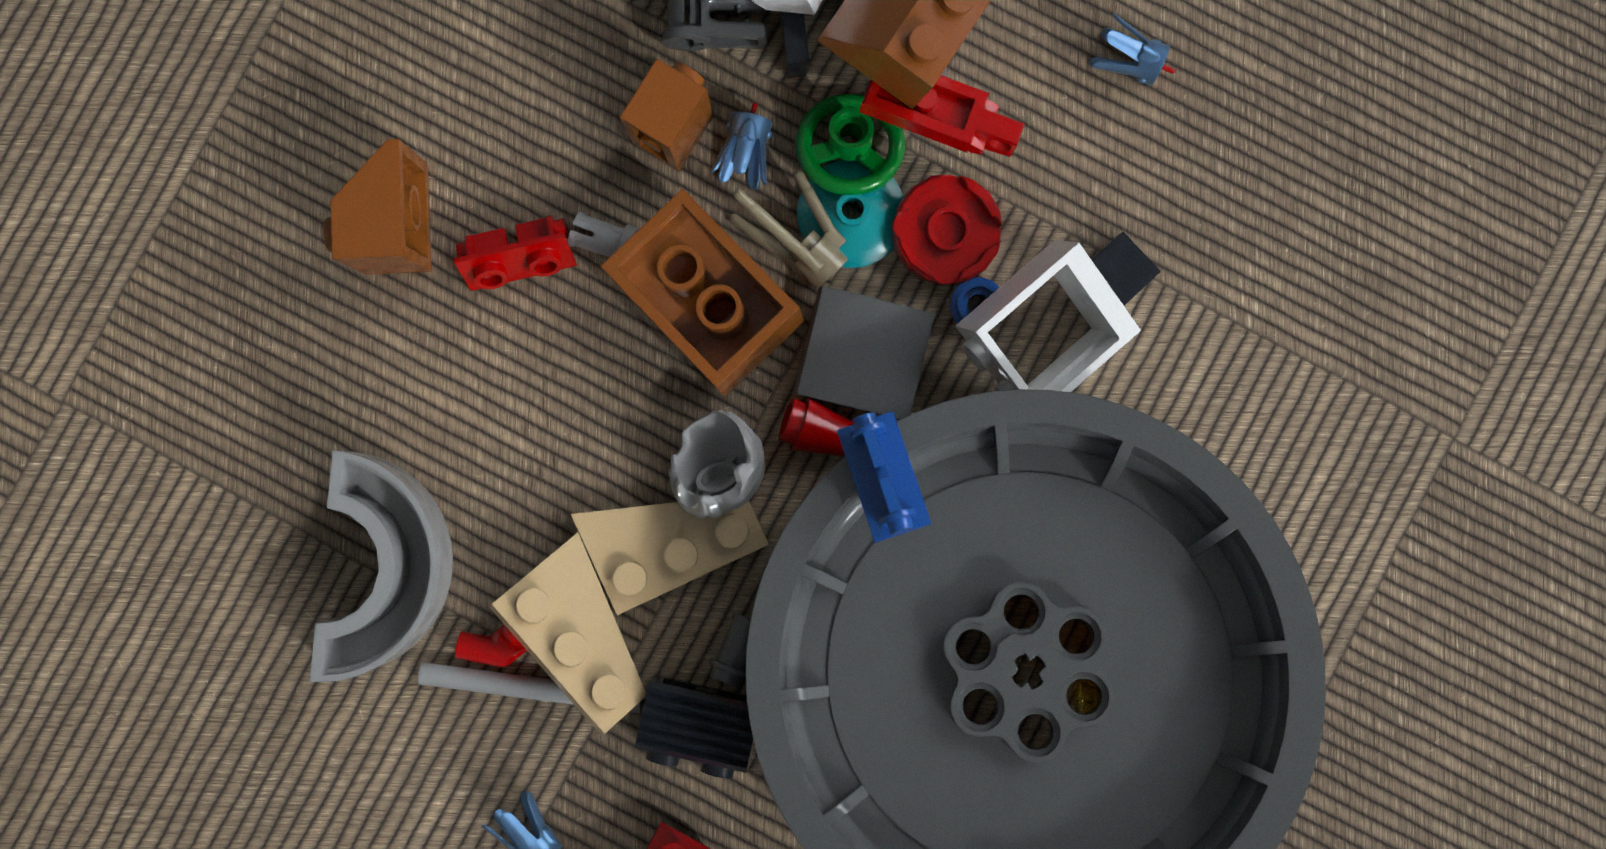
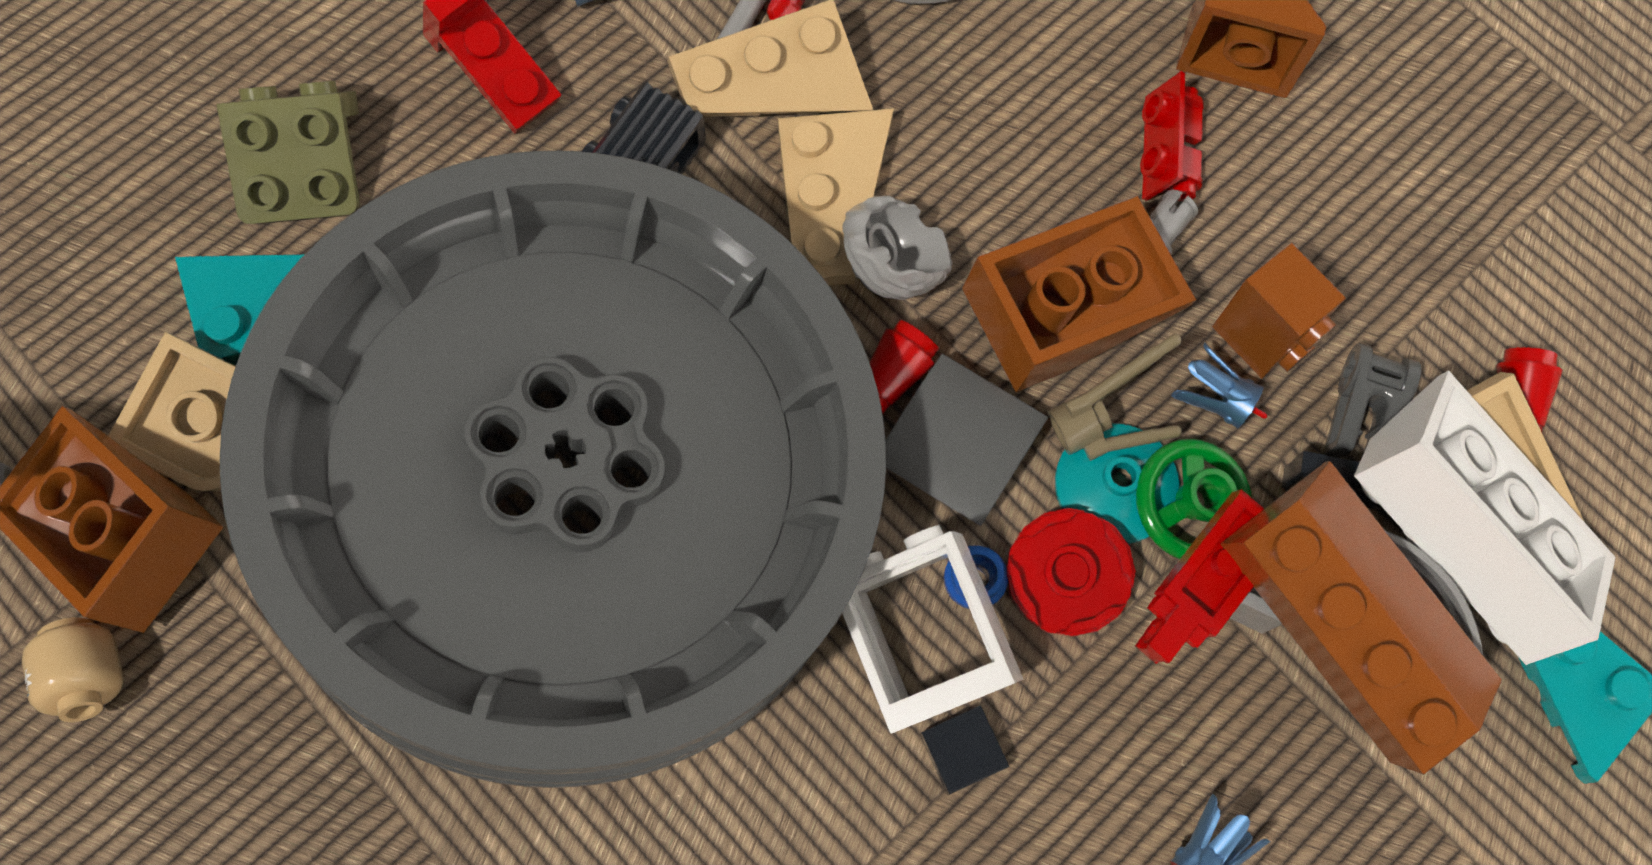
camera: 110 degrees right, 15 degrees down
(883, 476) = (829, 368): blue hinge -> none

